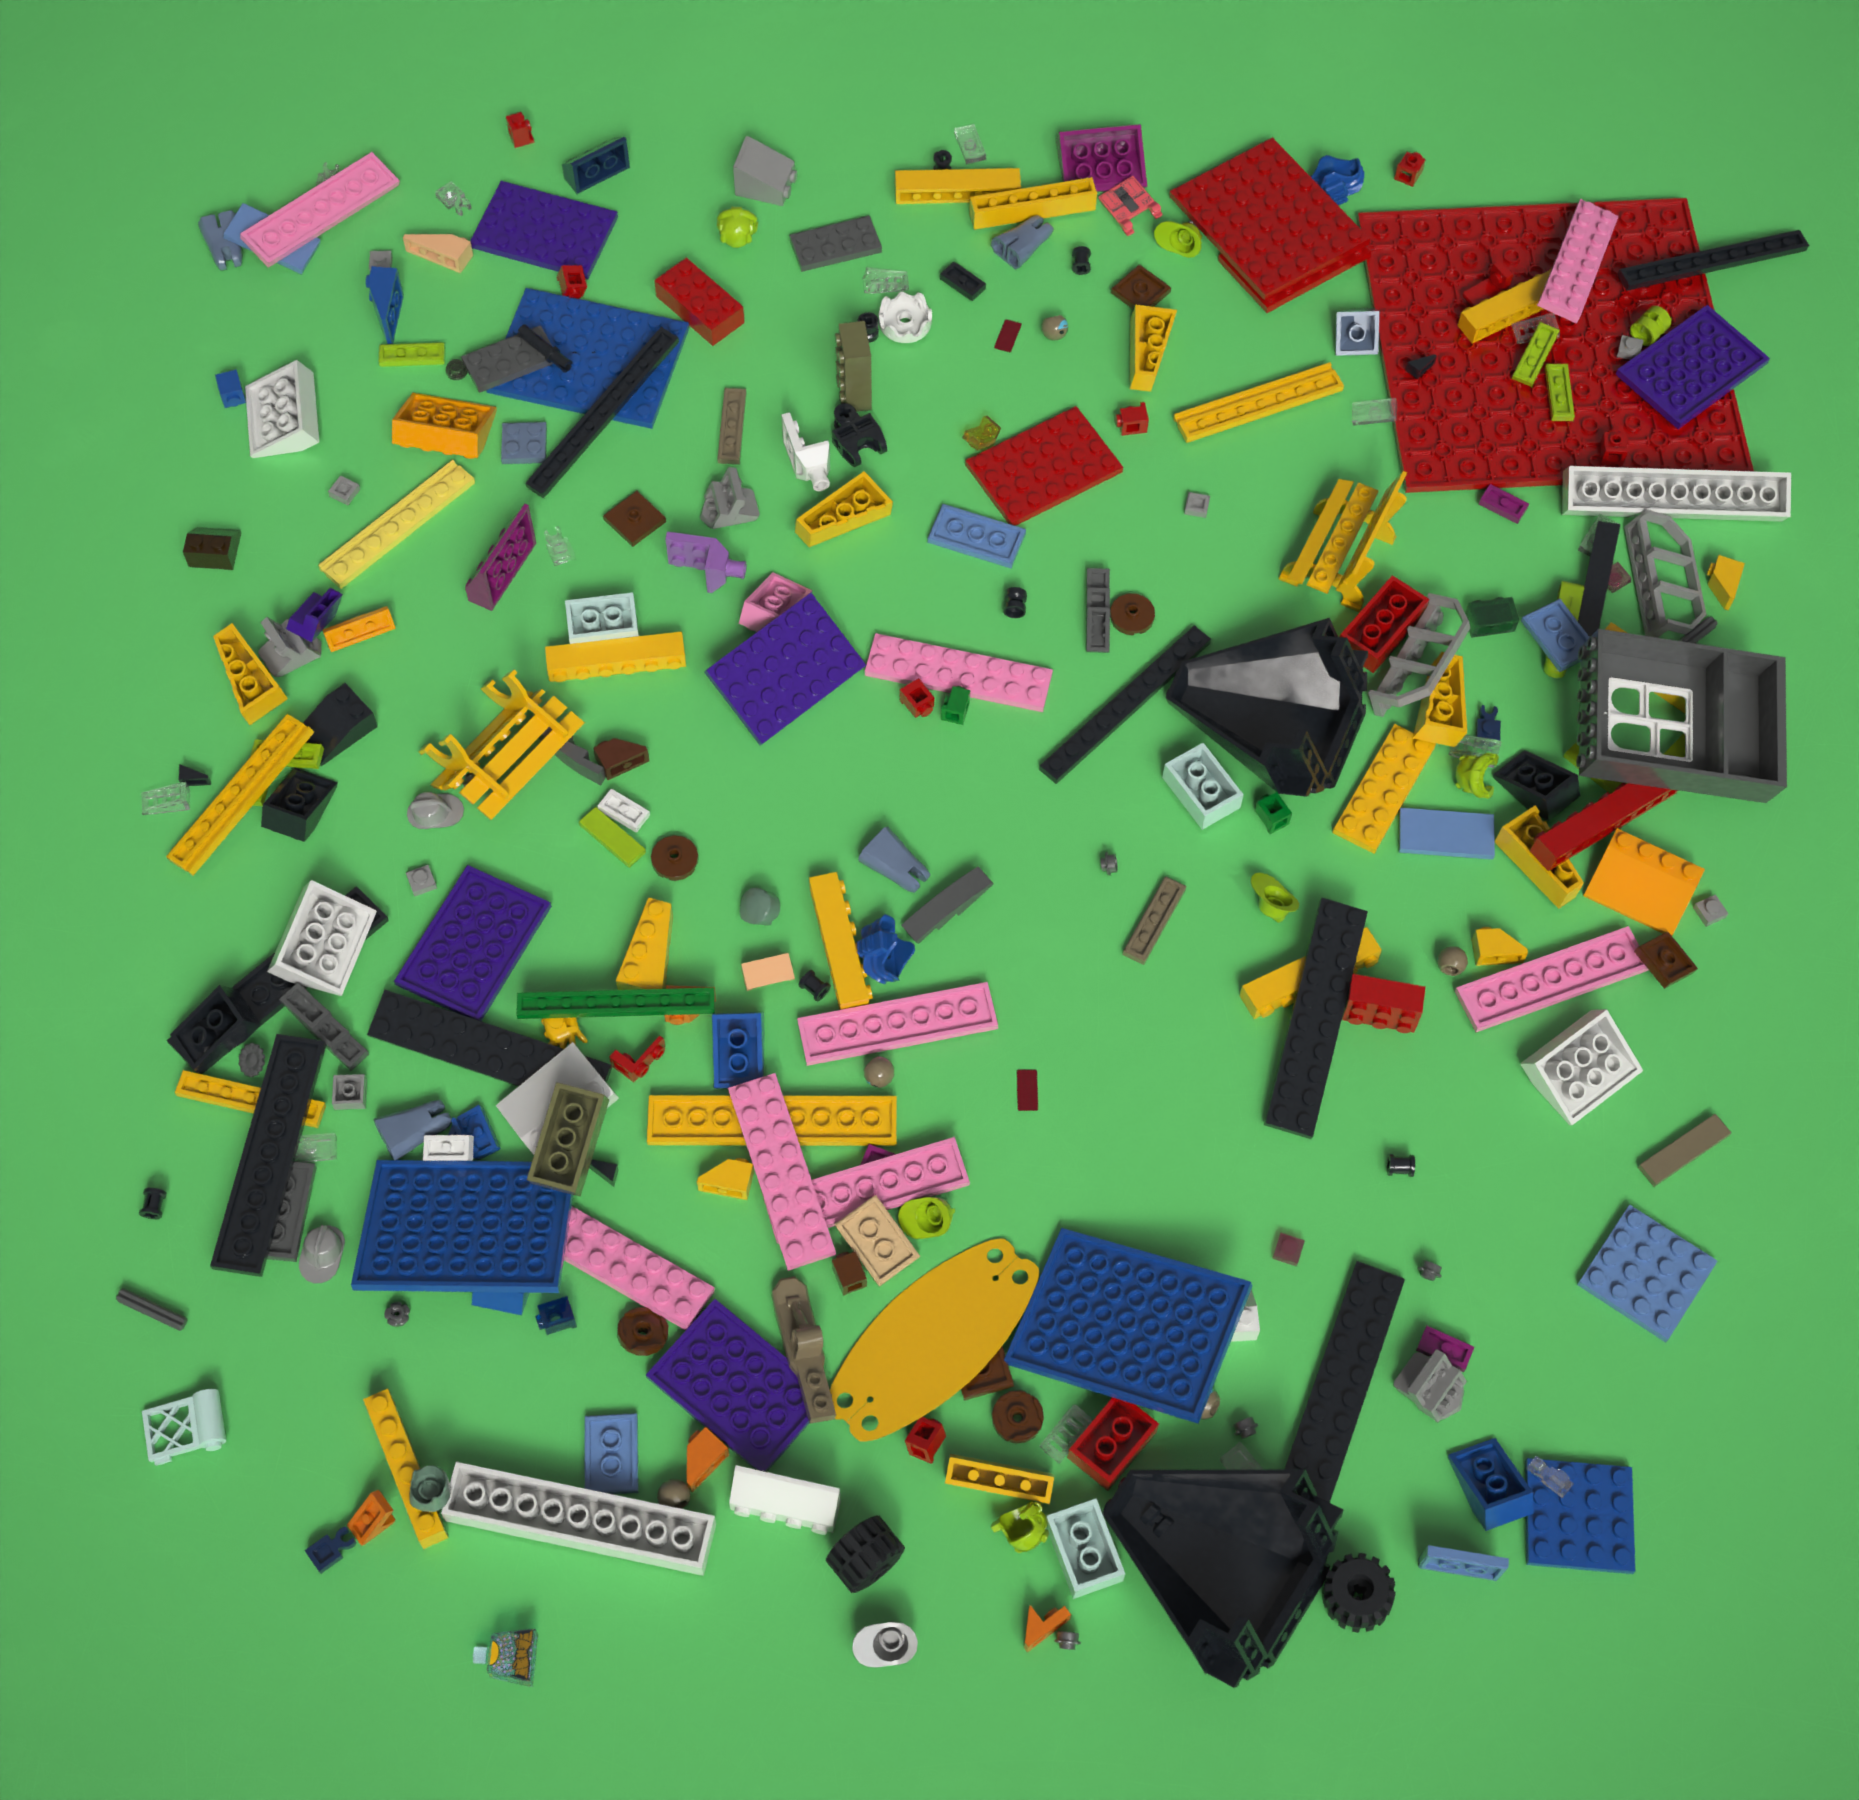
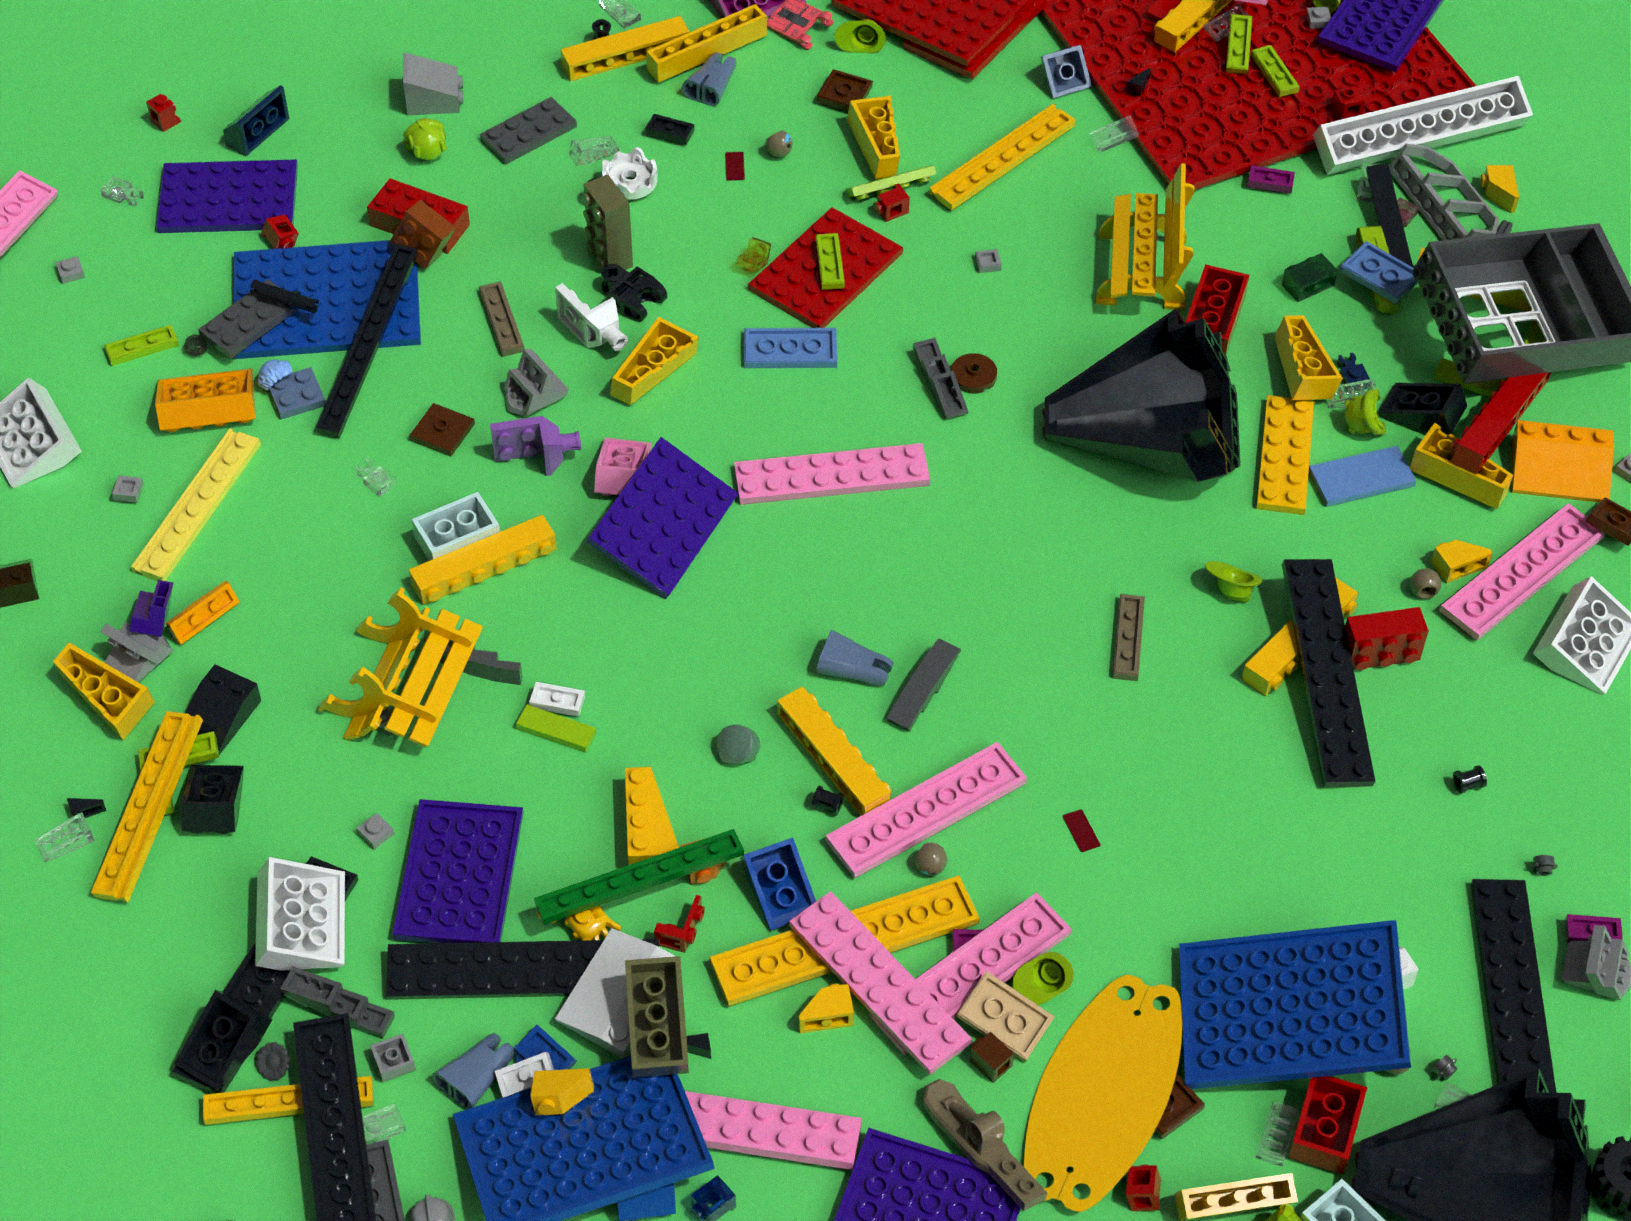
camera: 20 degrees left, 10 degrees down
(386, 297) = (93, 299): blue slope -> none
(434, 810) = (358, 760): light grey piece -> none
(441, 249) = (131, 240): light nougat slope -> none
(465, 1173) = (559, 1090): none -> yellow slope
(503, 561) = (326, 503): magenta slope -> none
(510, 417) = (273, 371): none -> light blue hair
(619, 756) = (531, 649): copper slope -> none
(644, 1321) = (808, 1186): reddish brown plate -> none
(674, 868) = (631, 737): reddish brown plate -> none
(691, 323) = (425, 231): none -> dark orange brick
(767, 971) = (774, 802): light nougat hinge -> none
(882, 942) = (883, 744): blue piece -> none
(917, 698) = (804, 507): red brick -> none
(956, 705) = (845, 502): green brick -> none
(1015, 599) = (858, 395): black wheel -> none
(1024, 1405) = (1224, 1123): reddish brown plate -> none
(1047, 461) = (830, 261): none -> lime tile
(1081, 260) = (776, 79): black bush -> none
(1109, 863) = (1061, 599): flat silver plate -> none
(1123, 705) = (1005, 456): black plate -> none
(1151, 398) = (882, 185): none -> lime plate
(1202, 786) = (1118, 501): light aqua brick -> none
(1273, 804) = (1194, 505): green brick -> none
(1288, 1249) = (1403, 891): clear pink plate -> none
(1413, 649) = (1253, 329): light grey plate -> none

